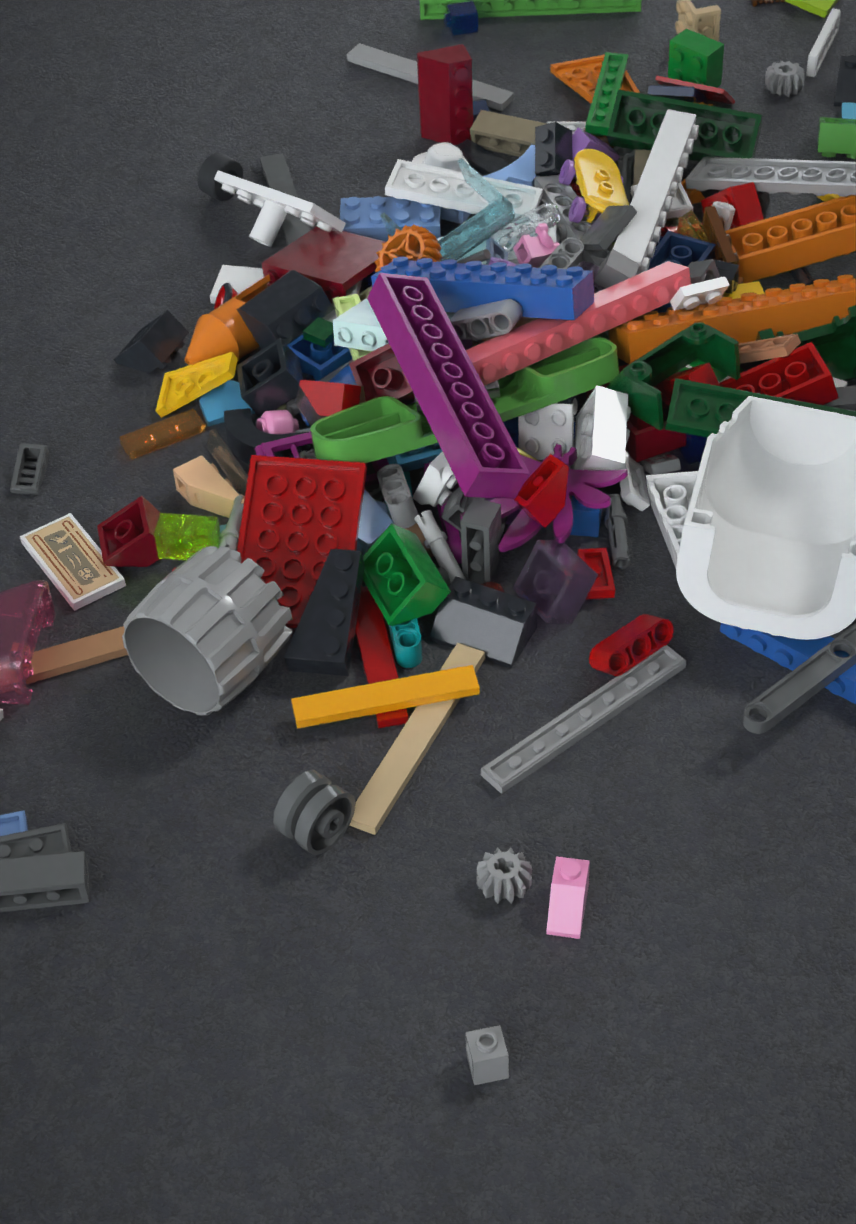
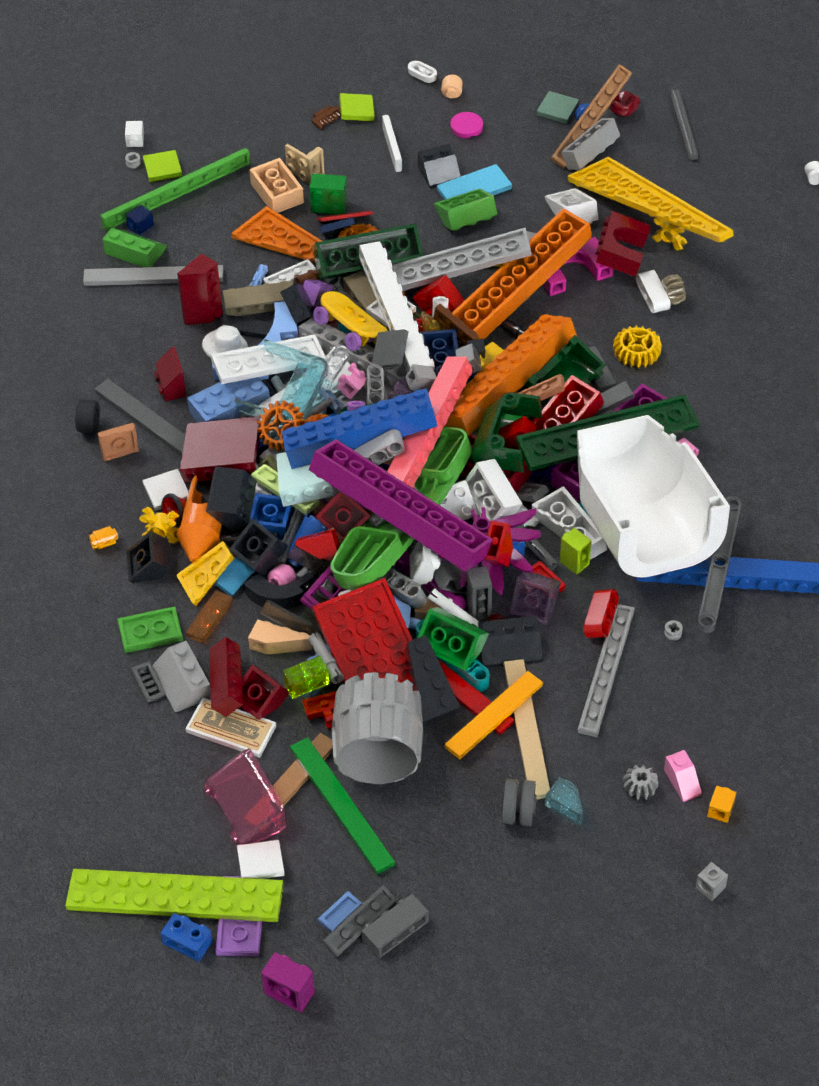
camera: 35 degrees left, 5 degrees up
(70, 480) = (181, 677): none -> light grey slope
(86, 418) = (150, 629): none -> bright green tile
(106, 718) = (342, 806): none -> green tile
(107, 499) = (225, 676): none -> dark red brick
(124, 302) = (103, 538): none -> light orange brick
(188, 309) = (160, 524): none -> yellow pin
(226, 212) = (118, 442): none -> nougat tile
(275, 208) = (152, 424): white plate -> none
(319, 332) = (265, 501): dark green tile -> none
(349, 173) = (170, 376): none -> dark red slope
(385, 844) = (565, 800): none -> clear light blue slope
(422, 33) = (132, 247): none -> bright green slope
(554, 114) = (259, 275): none -> light blue axle
(591, 962) = (721, 804): none -> light orange brick
(604, 97) = (292, 242): green plate -> none
(644, 35) = (276, 185): none -> light nougat brick
(657, 554) = (575, 551): none -> lime brick
(699, 293) = (485, 367): white plate -> none
(716, 704) = (673, 625): none -> light grey bush
(784, 78) = (388, 181): light grey gear -> none

